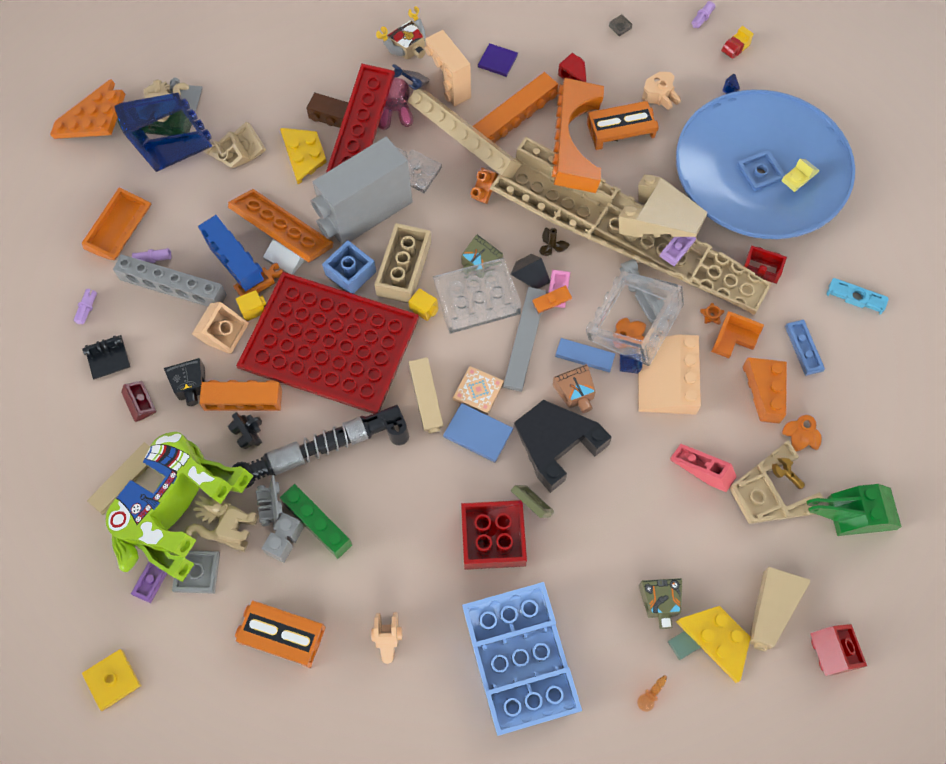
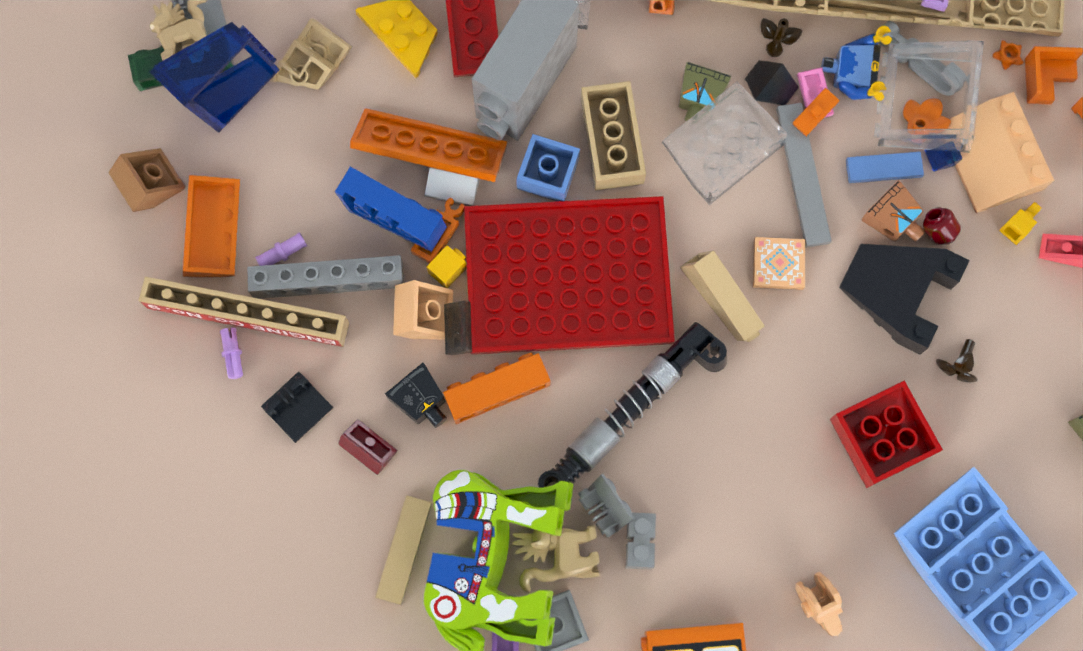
camera: 25 degrees left, 10 degrees up
(92, 115) = (93, 86): orange wing -> none
(93, 180) = (145, 178): none -> medium nougat slope
(106, 283) = (244, 311): none -> tan brick
(236, 346) = (458, 328): none -> clear smoke plate
(249, 427) = (515, 423): black hips -> none
(316, 521) = (670, 505): green brick -> none
(423, 304) = (662, 180): yellow brick -> none
(478, 432) = (803, 316): medium blue tile -> none
(532, 501) = (913, 375): olive tile -> none
(573, 508) = (962, 365): none -> dark brown plant
(596, 280) = (858, 66): none -> torso
(605, 408) = (941, 226): none -> dark red head
(665, 429) = (1020, 223): none -> yellow piece

